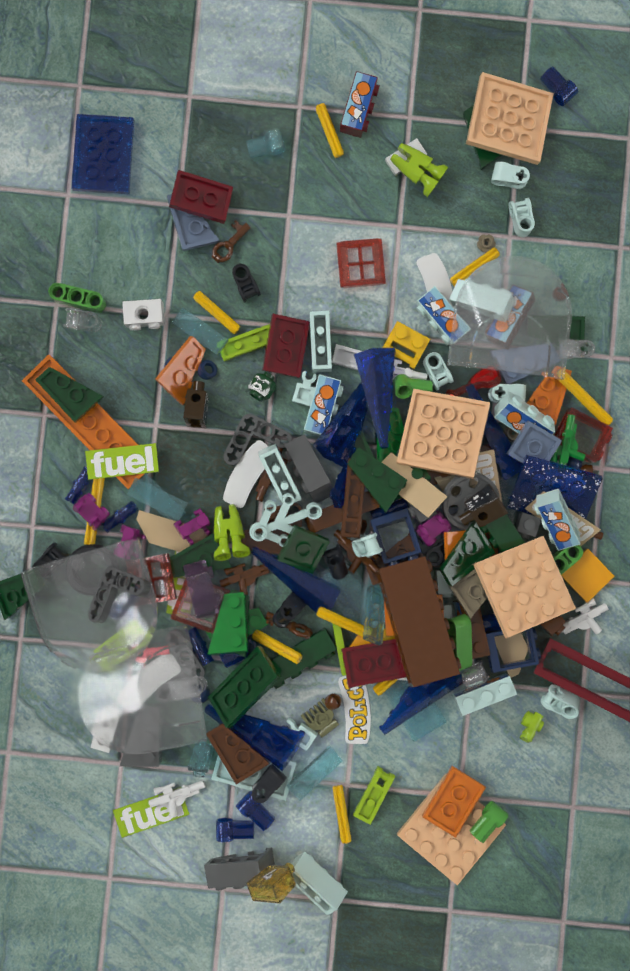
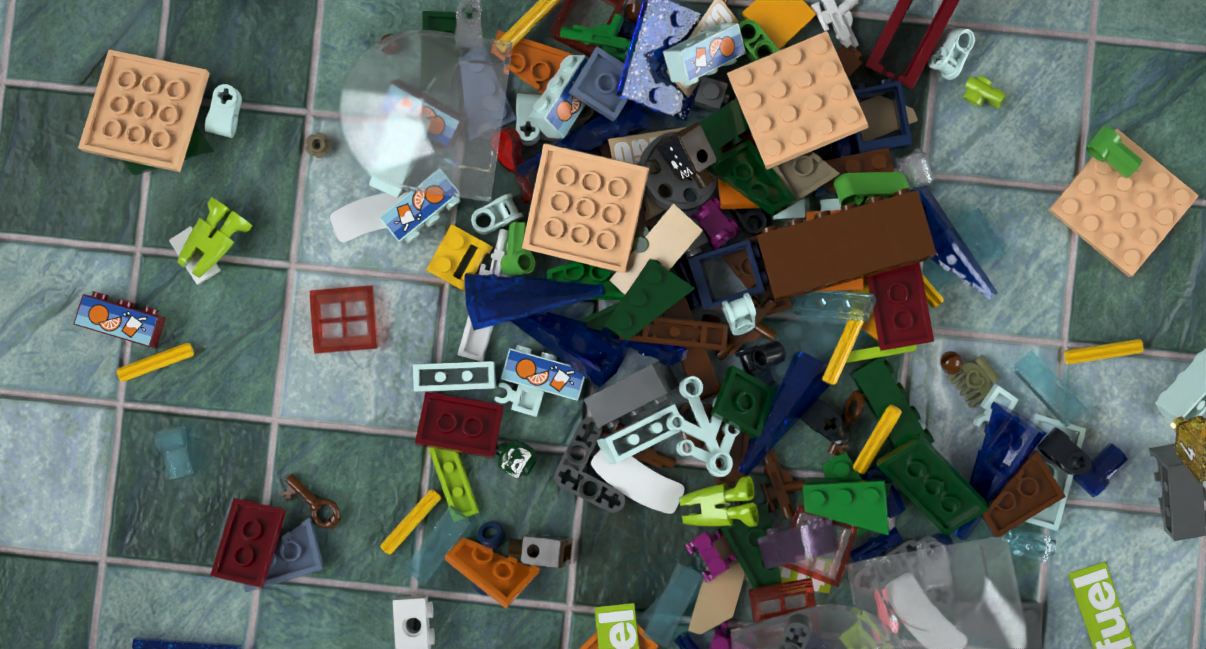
camera: 85 degrees left, 0 degrees up
(175, 797) = (1082, 580): white piece -> none
(228, 830) = (1126, 507): clear blue piece -> none
(246, 286) = (372, 480): black piece -> none
(356, 712) = (966, 330): sticker -> none
(373, 796) = (1079, 308): lime plate -> none
(453, 801) = (1086, 199): orange tile -> none
(468, 270) = (350, 161): yellow axle -> none
(485, 694) = (936, 141): light aqua brick -> none
(522, 213) = (276, 95): light aqua piece -> none
(563, 89) = (104, 36): clear blue piece -> none

